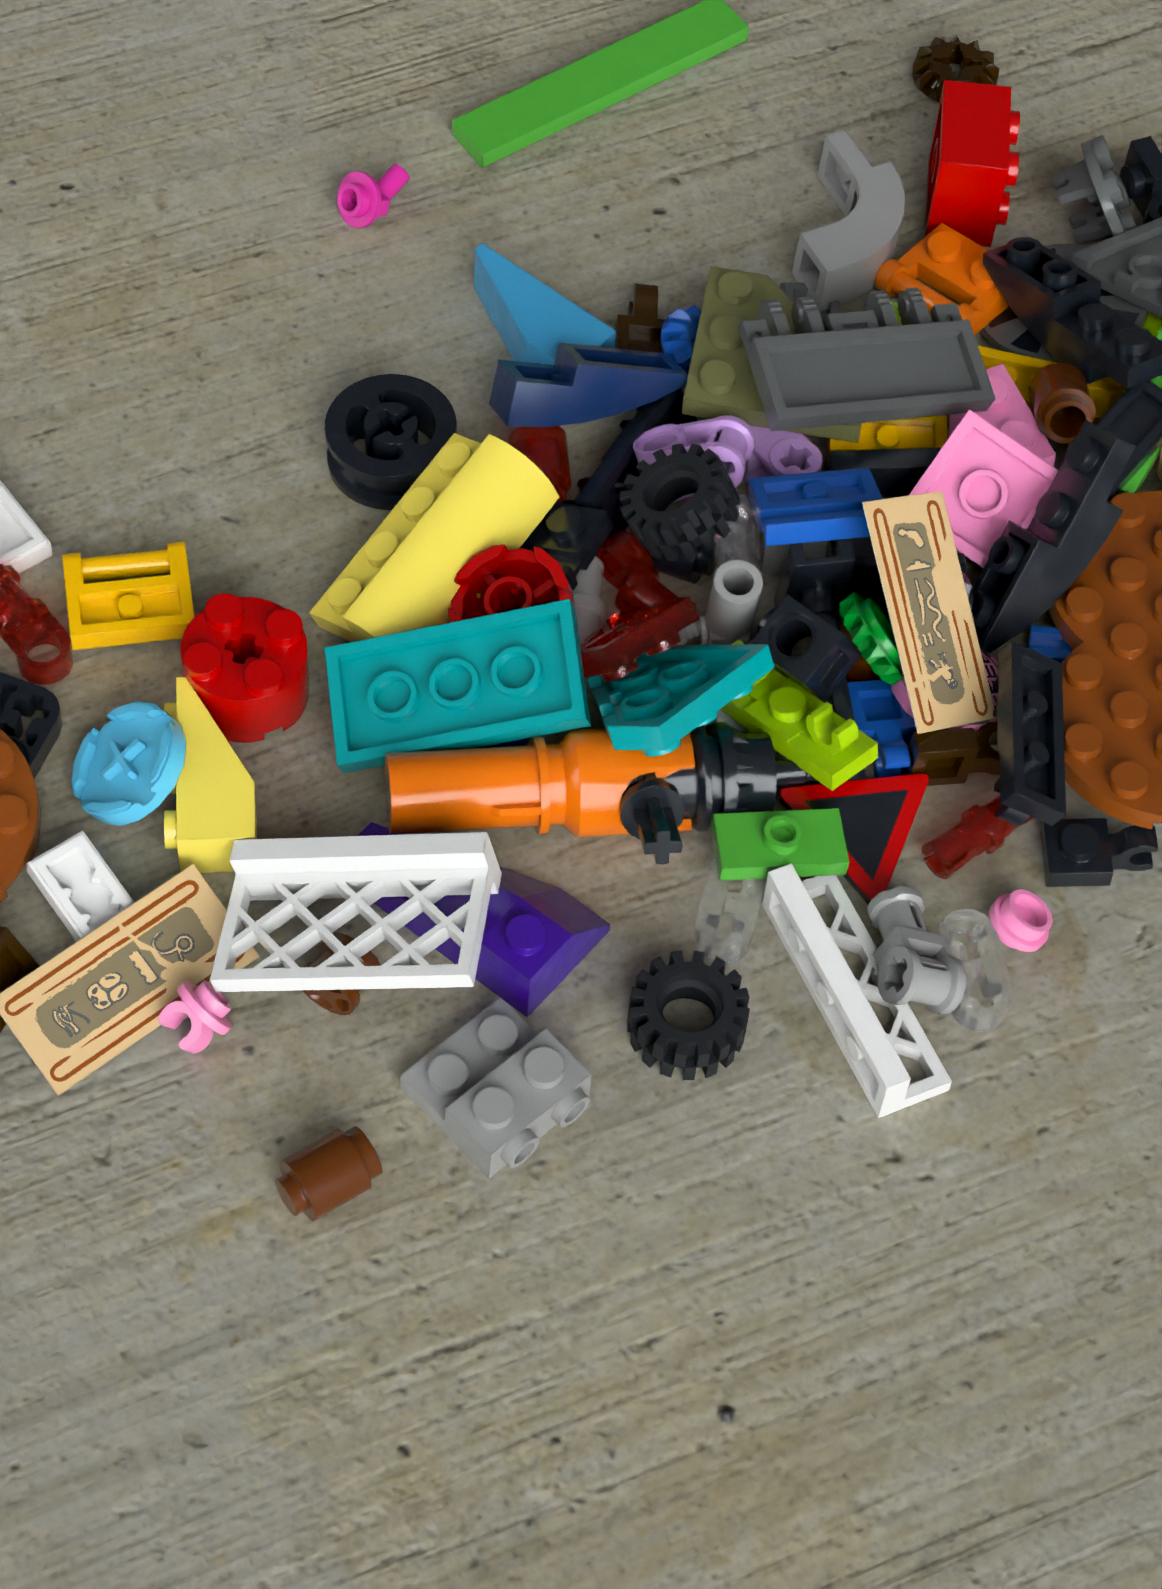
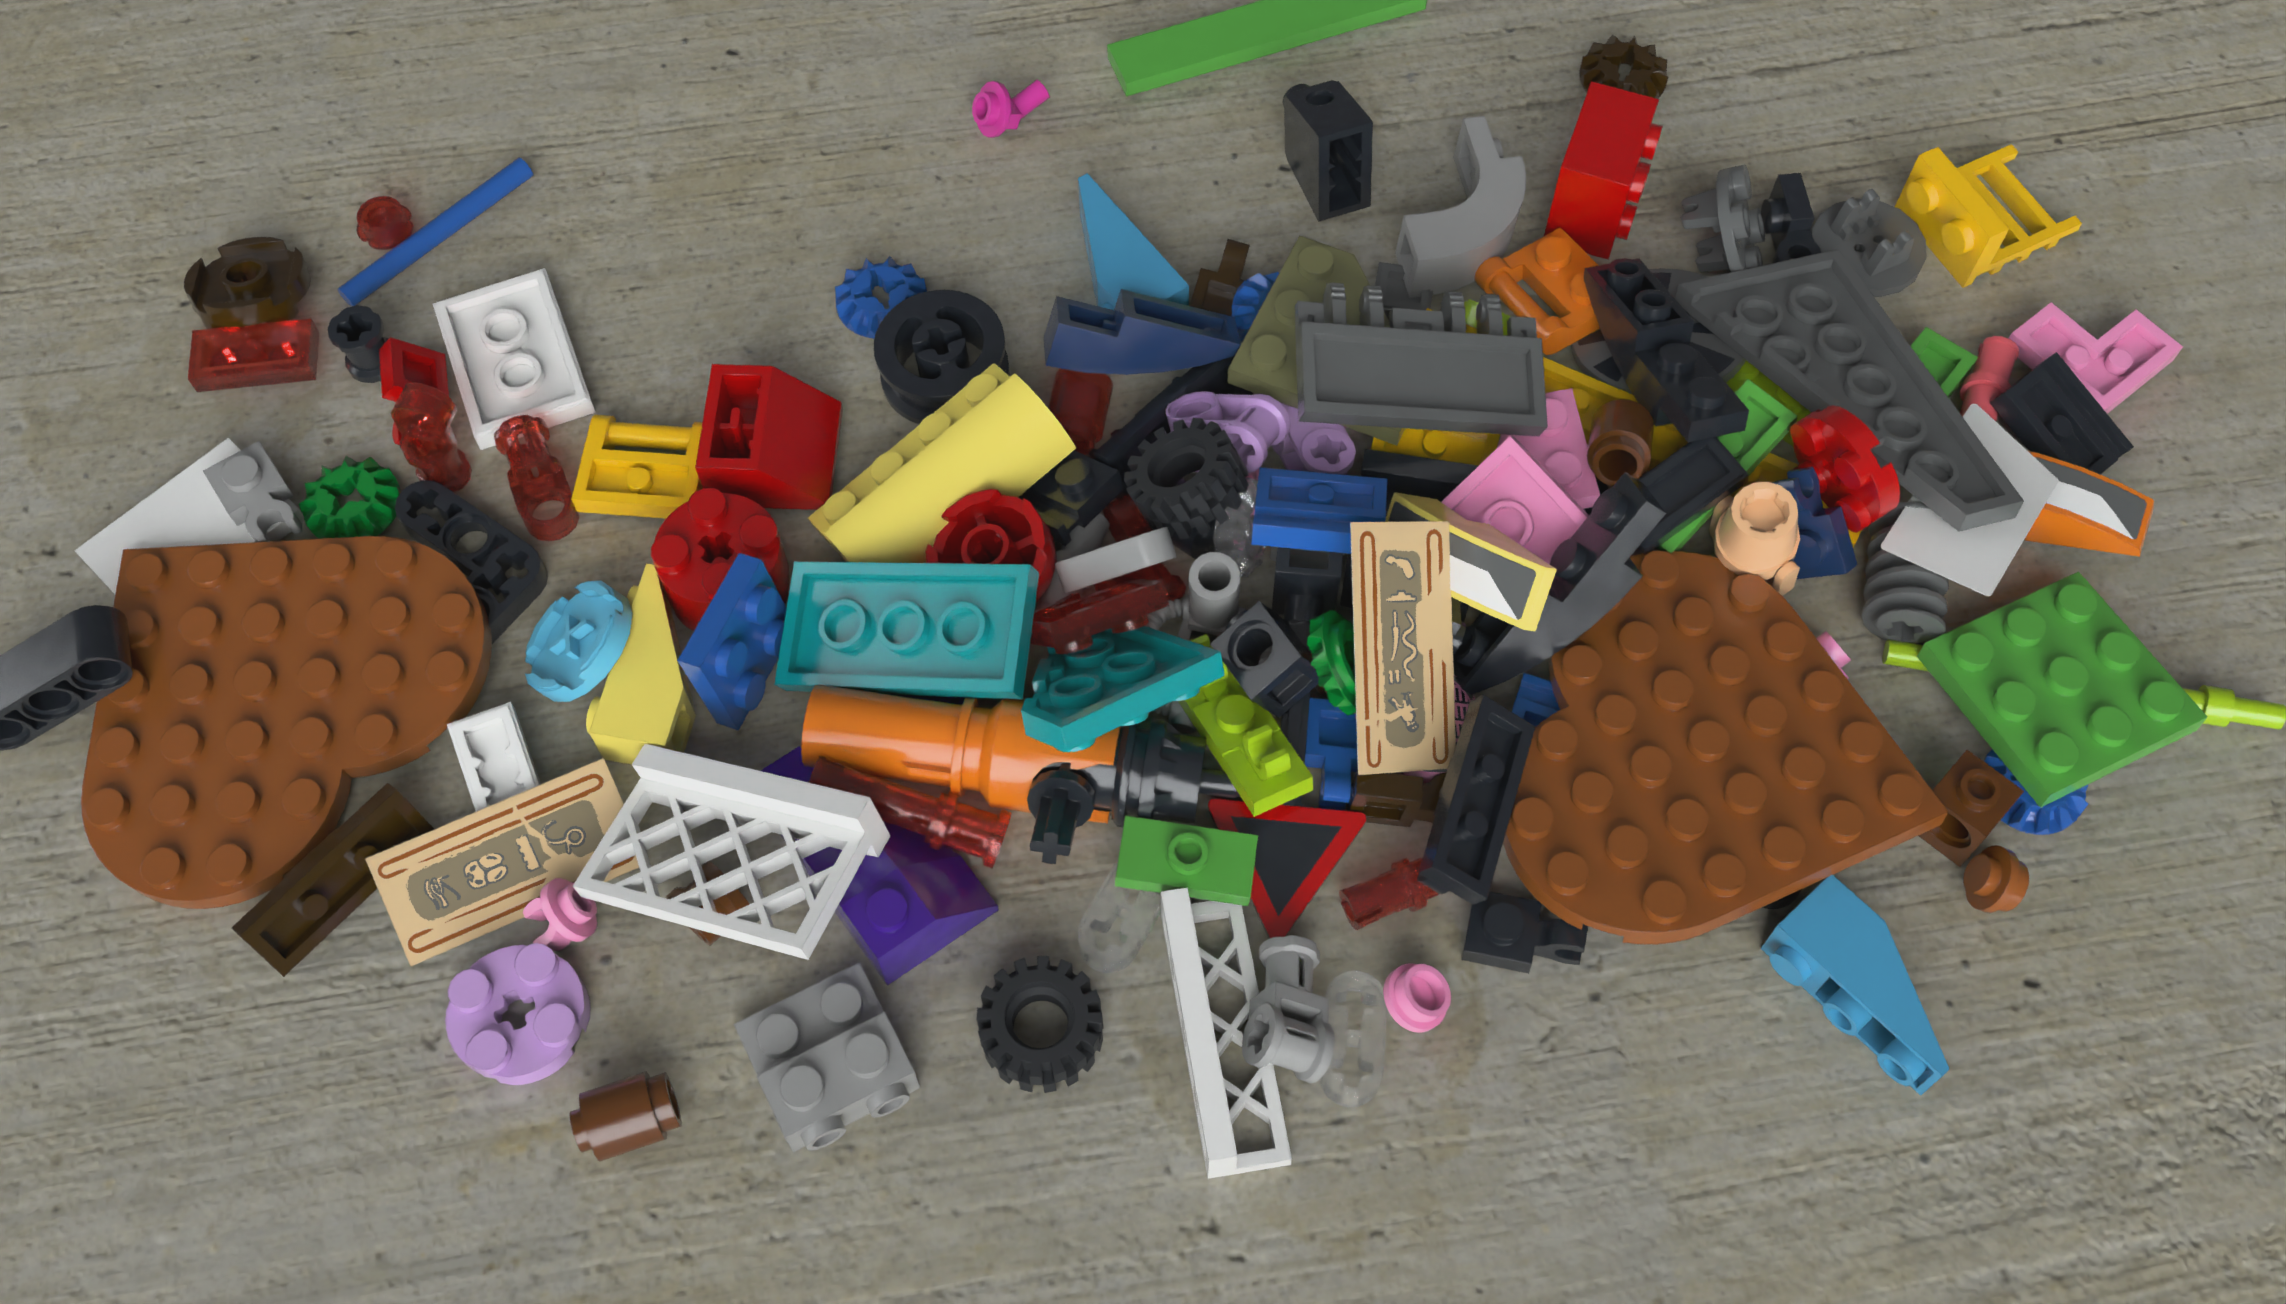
camera: 20 degrees right, 5 degrees up
(177, 1147) = (485, 992): none -> lavender plate
(250, 540) = (768, 437): none -> red slope
(294, 732) = (736, 642): none -> blue plate
(301, 415) = (855, 298): none -> blue gear
(536, 854) = (942, 819): none -> clear red pin
(633, 589) = (1115, 560): none -> light grey beam
(703, 182) = (1326, 132): none -> black torso
(989, 528) = (1485, 564): none -> slope

